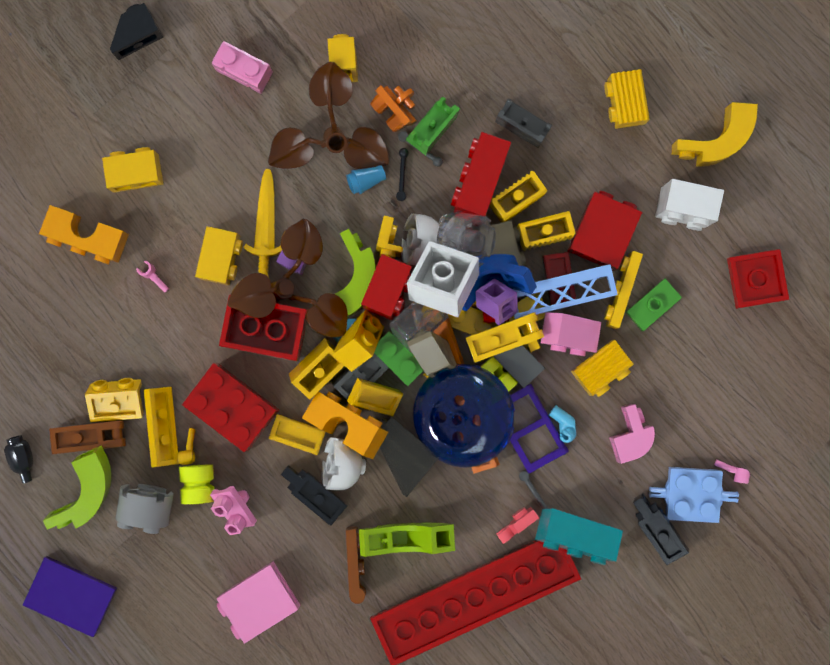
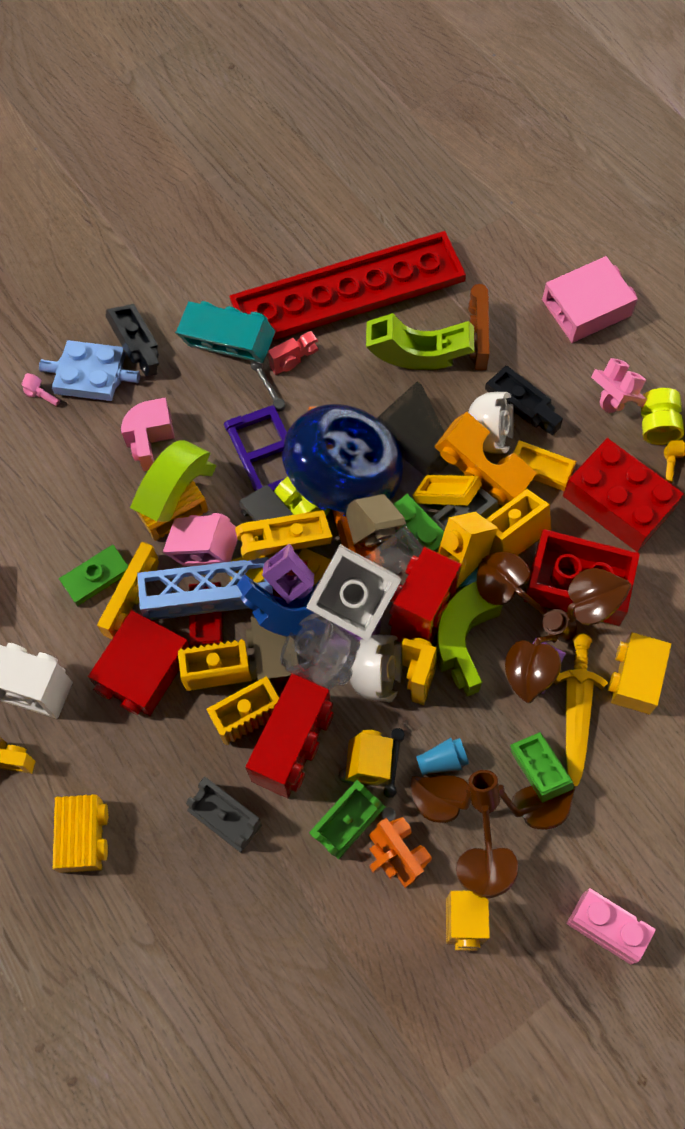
camera: 170 degrees left, 20 degrees down
(292, 176) = (541, 767): none -> bright green plate
(421, 171) = (369, 758): none -> yellow brick
(566, 424) = (222, 452): medium azure arm -> none
(602, 380) = (169, 478): none -> lime arch

